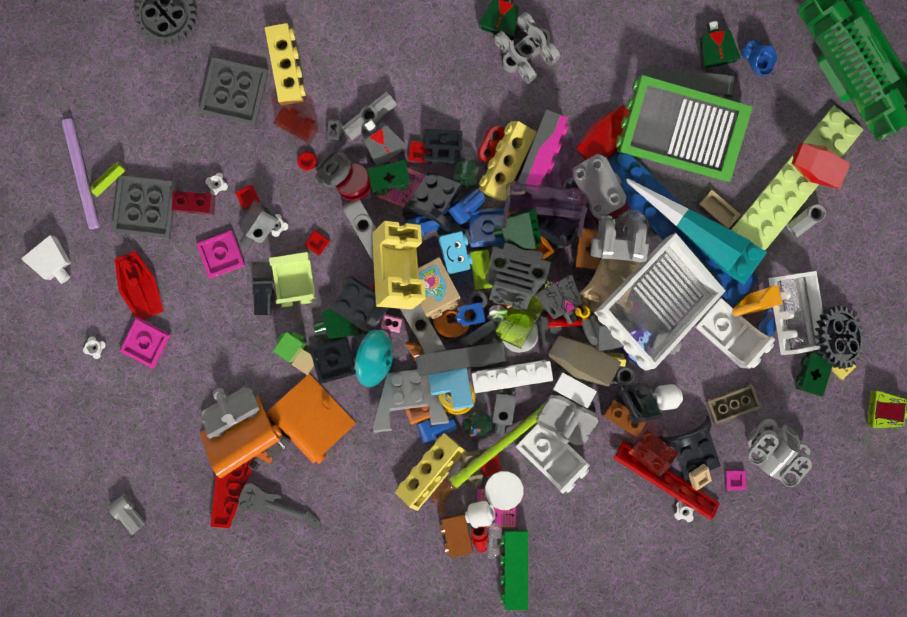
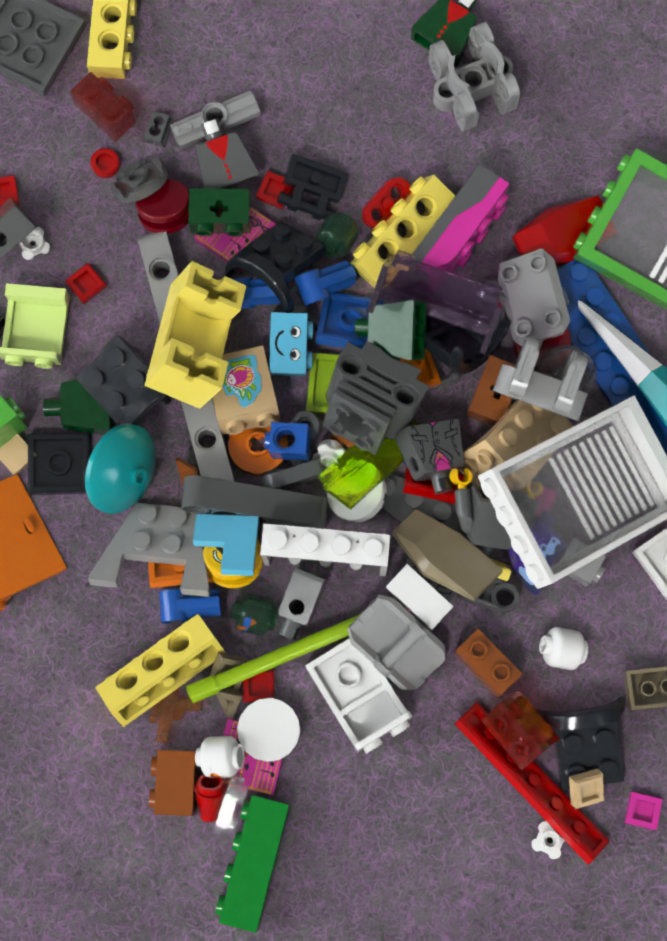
camera: 10 degrees right, 10 degrees down
(393, 318) = (159, 434): bright pink piece -> none
(642, 399) = (524, 642): black plate -> none

